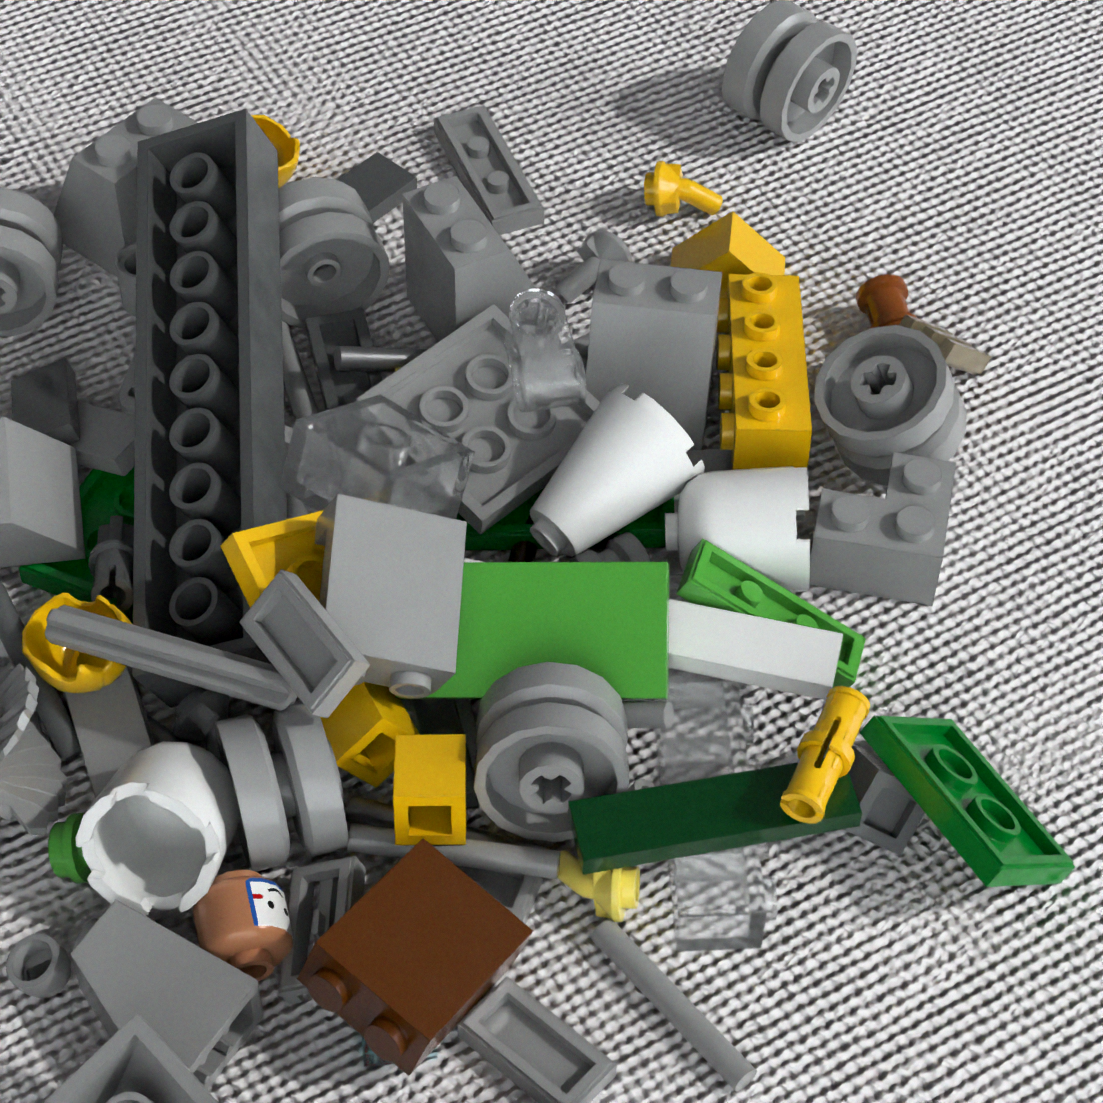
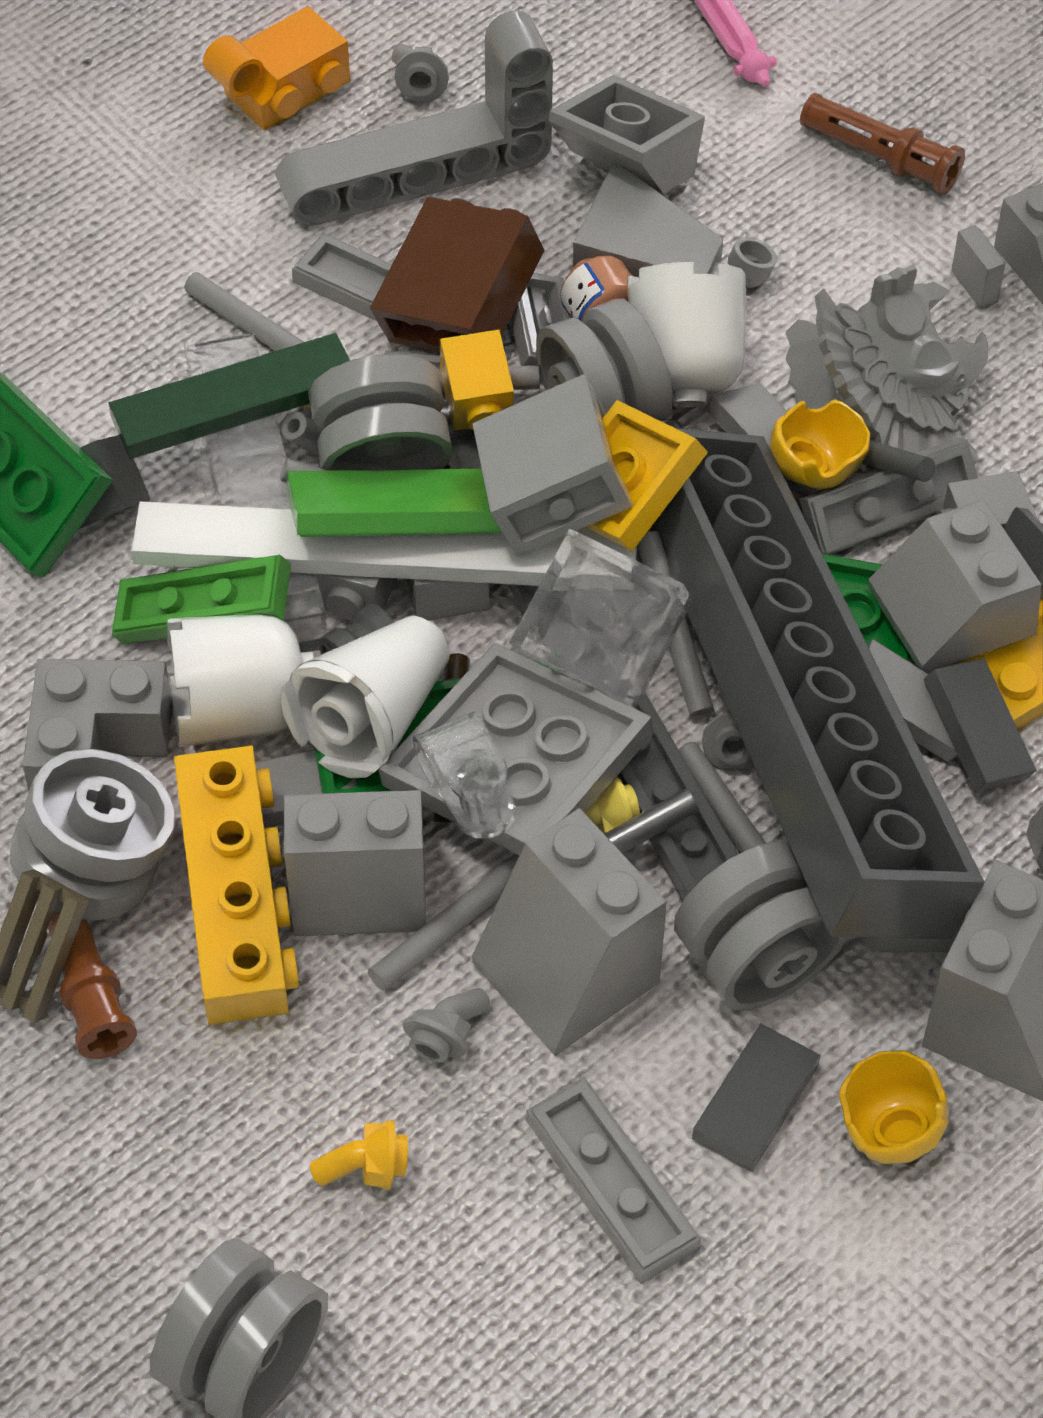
camera: 170 degrees right, 5 degrees up
(64, 855) = (762, 344): bright green plate -> none
(113, 563) = (832, 542): dark grey axle -> none
(169, 656) = (723, 397): light grey axle -> none
(304, 644) = (601, 368): light grey tile -> none
(728, 248) = (292, 1059): yellow slope -> none
(811, 784) = (140, 416): yellow pin -> none

